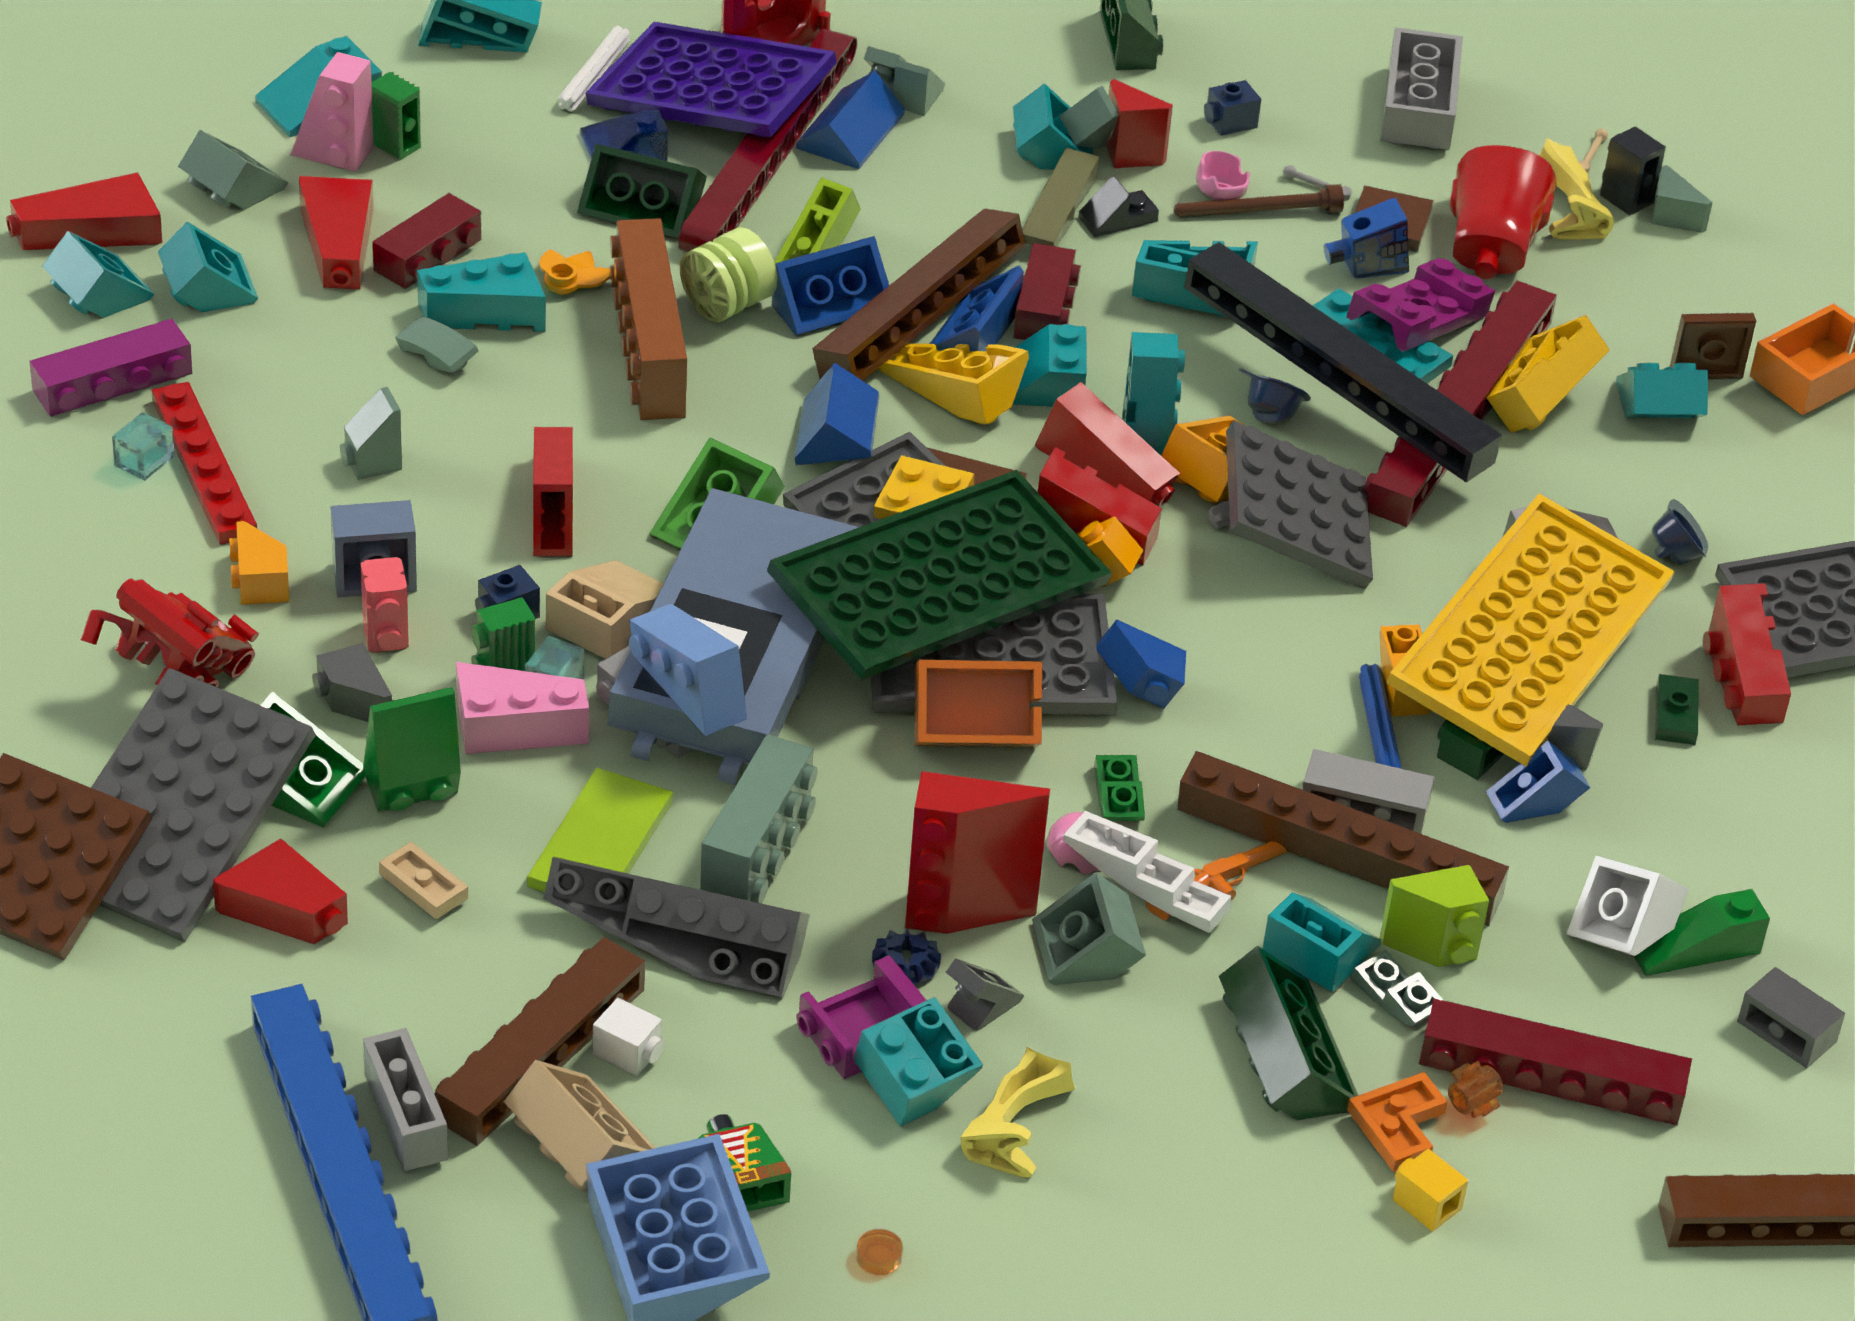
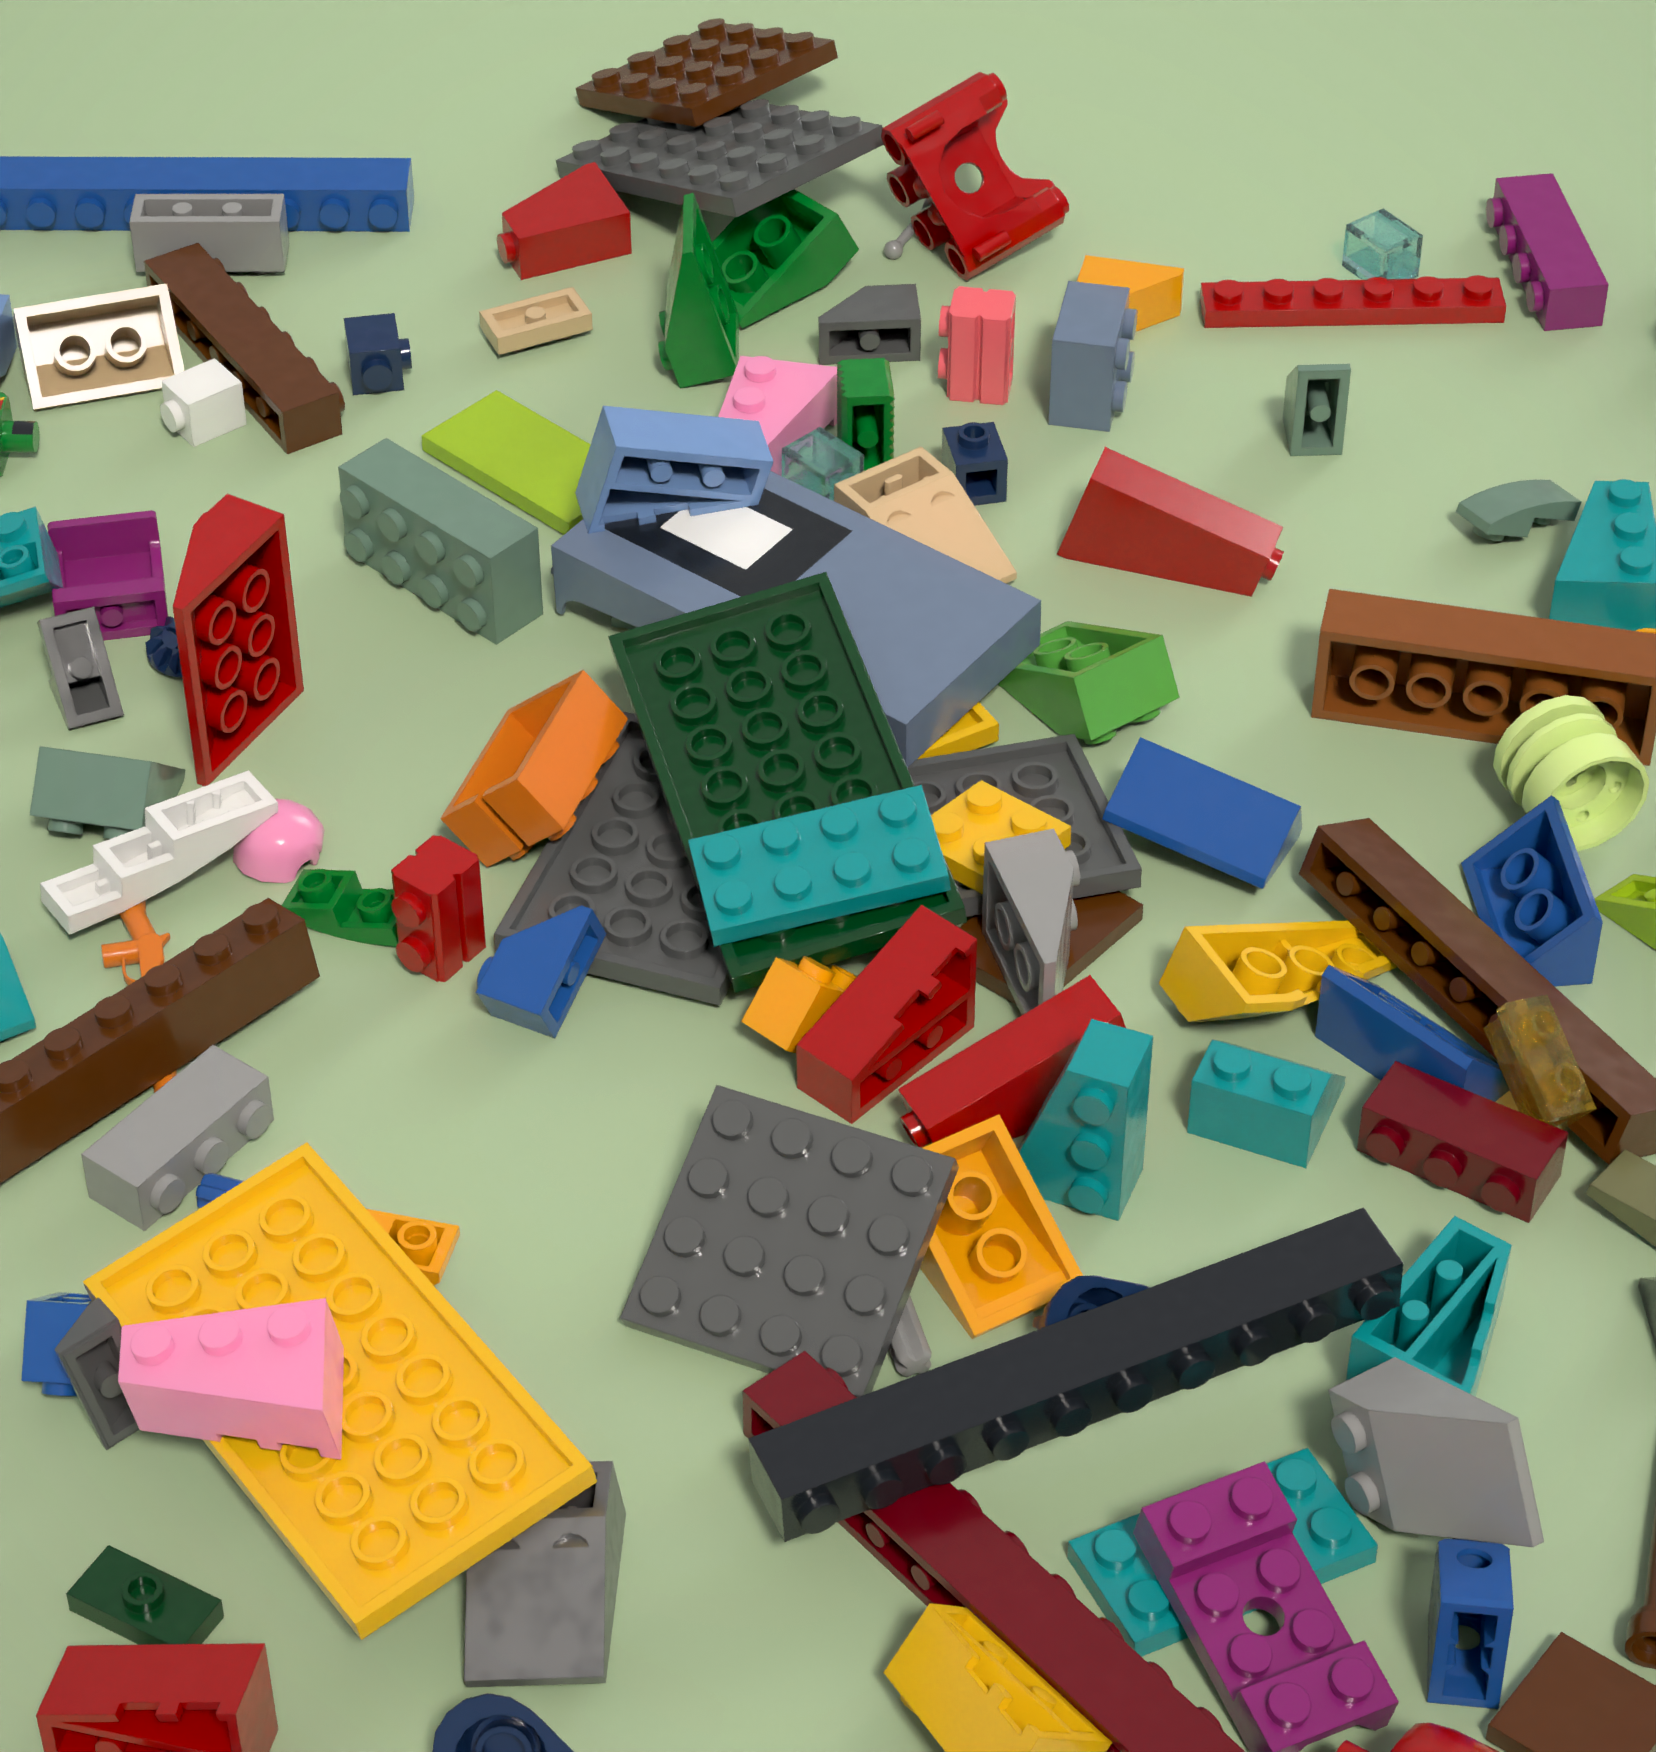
camera: 115 degrees right, 0 degrees up
(517, 956) = (376, 354): none -> dark blue brick
(687, 927) = (312, 492): dark grey wedge -> none
(992, 253) = (1539, 1062): none -> clear yellow bracket
(1013, 438) = (1030, 913): none -> light grey slope
(1020, 533) = (819, 865): none -> teal plate
(1128, 715) = (438, 908): none -> red brick
(1304, 245) = (1433, 1458): none -> light grey slope
(1576, 635) = (239, 1374): none -> bright pink wedge

